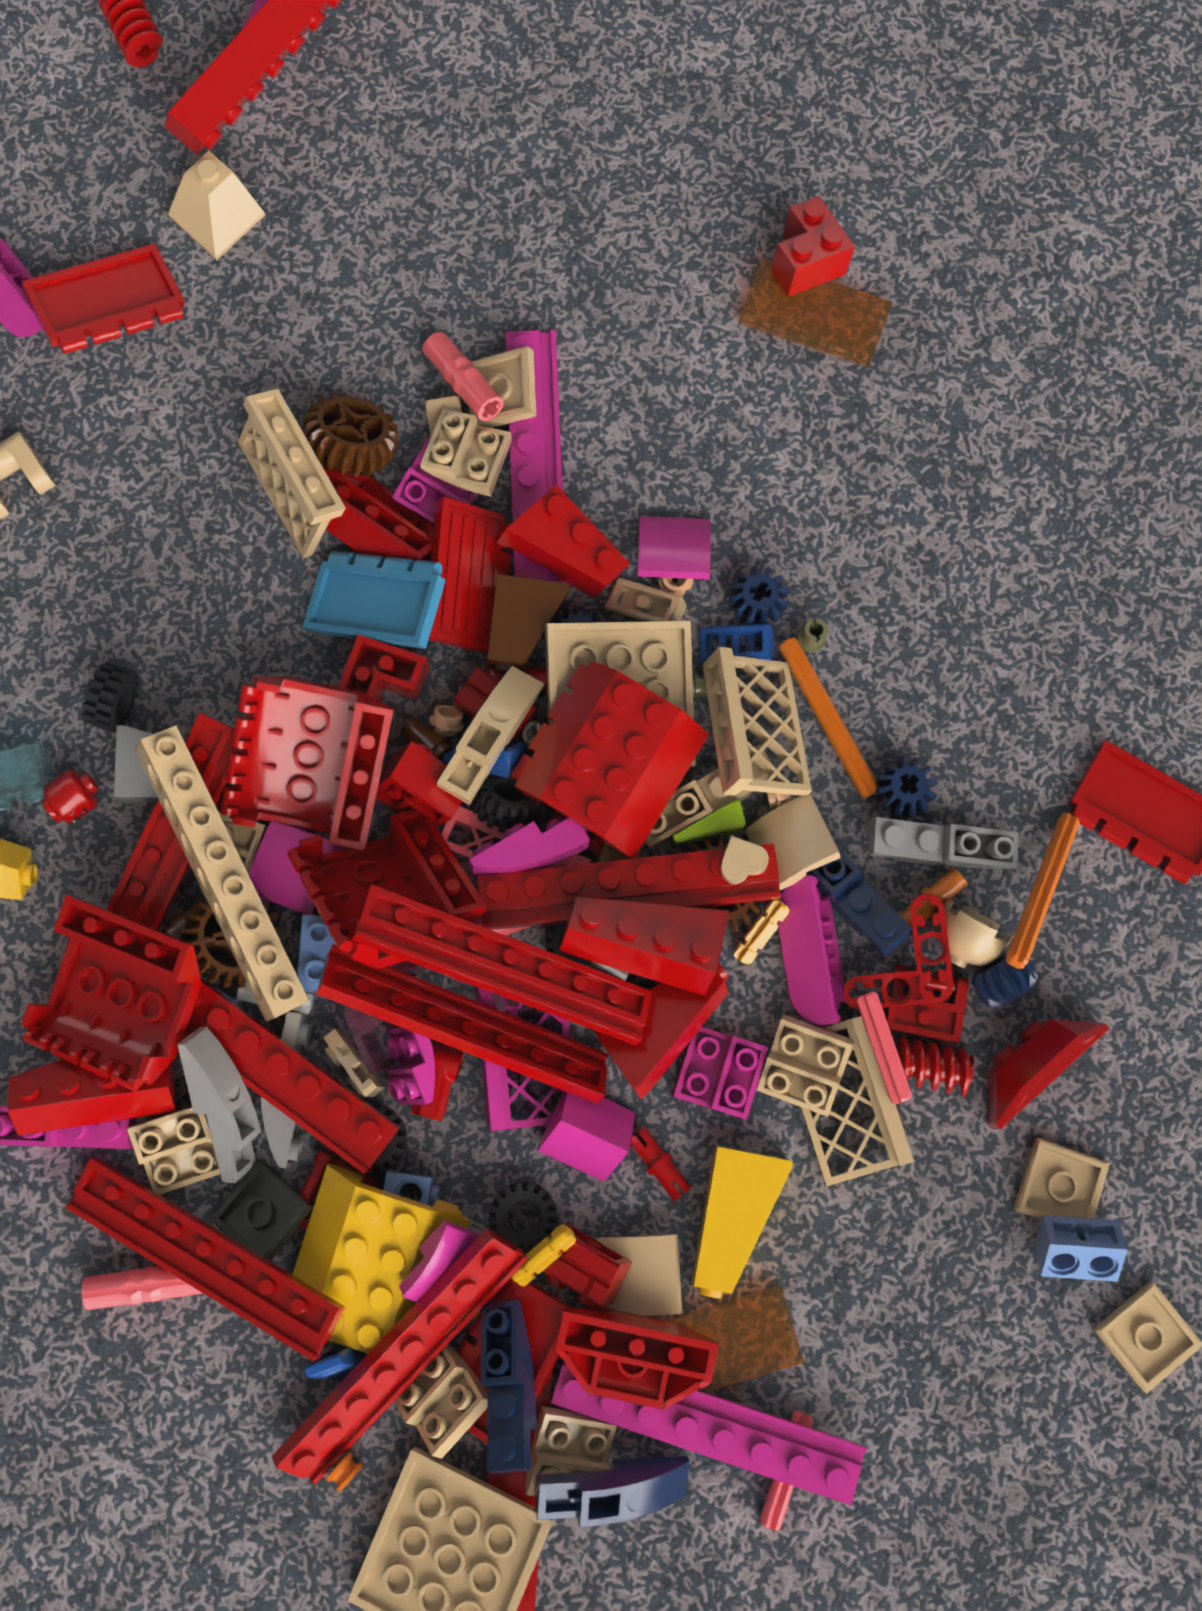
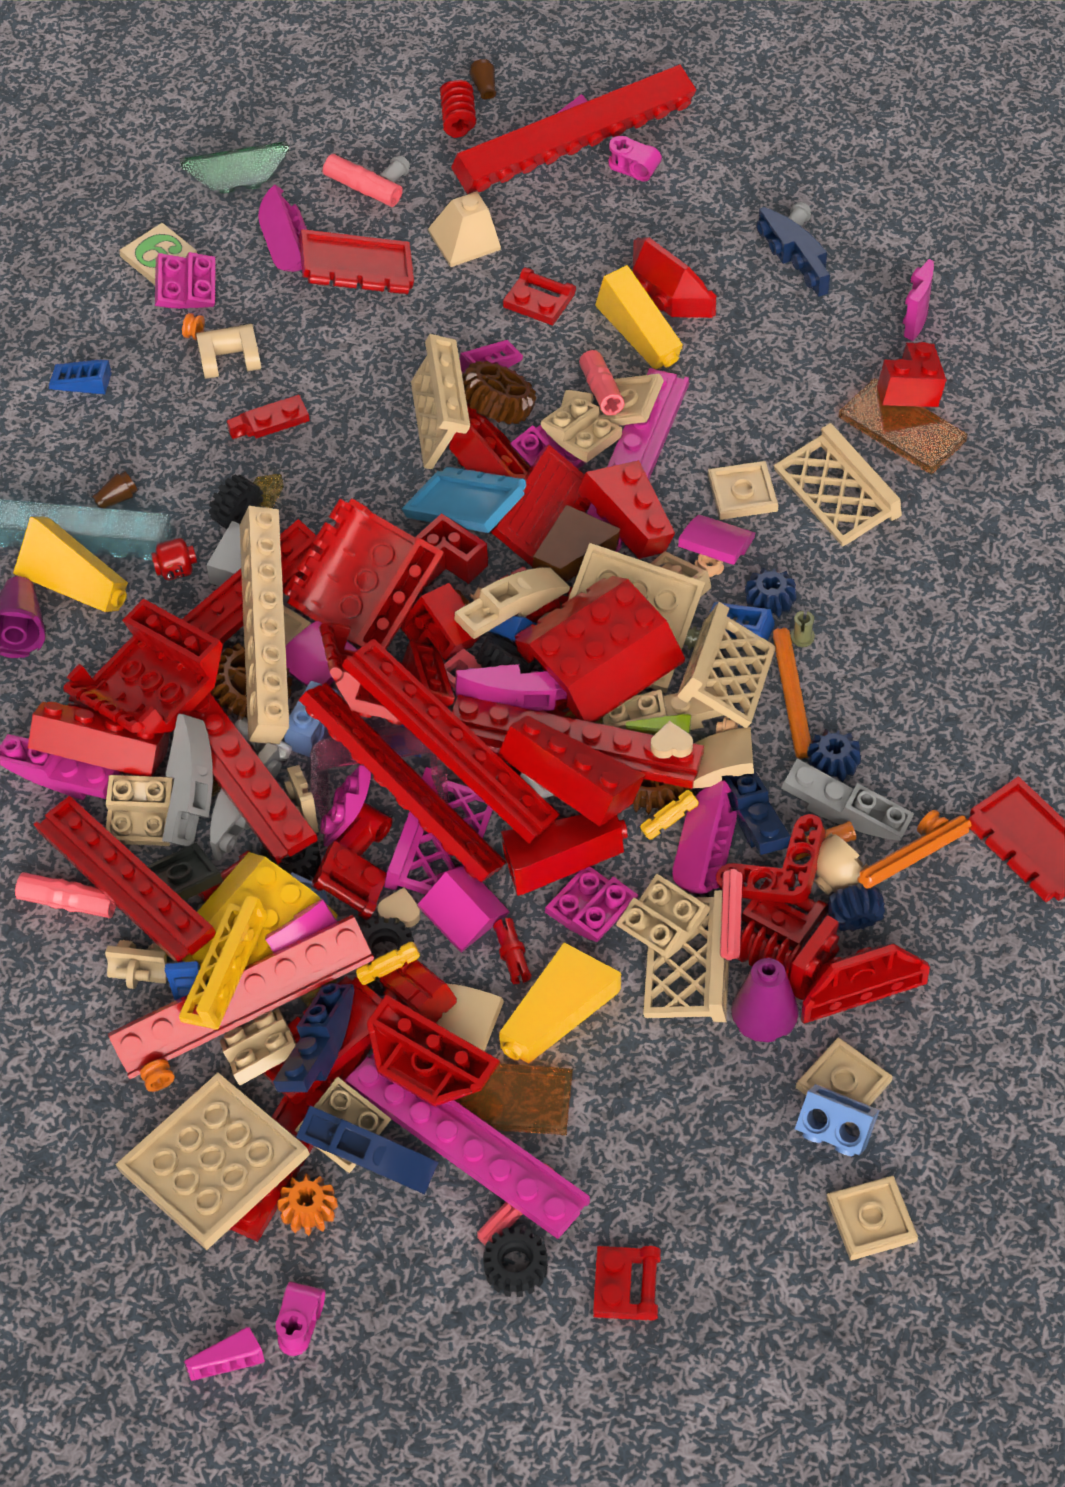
camera: 25 degrees right, 25 degrees down
(61, 171) = (362, 180): none -> coral axle
(93, 145) = (398, 167): none -> light grey pin
(95, 553) = (269, 418): none -> red hinge
(134, 654) = (271, 487): none -> clear yellow slope
(246, 1345) = (136, 964): none -> tan hips
(300, 397) = (486, 352): none -> dark pink slope
(335, 280) = (538, 303): none -> red plate
(373, 35) = (634, 160): none -> dark pink piece
(379, 1347) = (229, 966): none -> yellow fence
(452, 1141) = (354, 874): none -> red plate
(470, 270) = (638, 318): none -> yellow slope
(481, 205) = (671, 282): none -> red wedge
(516, 1155) = (401, 907): none -> tan tile
(588, 1564) = (298, 1214): none -> orange gear
(592, 52) = (800, 213): none -> light grey pin
(603, 97) = (797, 245): none -> dark blue slope
(672, 463) = (742, 490): none -> tan tile
(778, 134) = (918, 300): none -> dark pink slope
(794, 398) = (860, 475): none -> tan fence
(836, 1552) = (517, 1281): none -> black tyre
(921, 1519) = (614, 1282): none -> red plate
(949, 1131) = (765, 1003): none -> magenta cone
(991, 1047) = (816, 952): none -> red plate
(1040, 838) = (930, 822): none -> orange bush

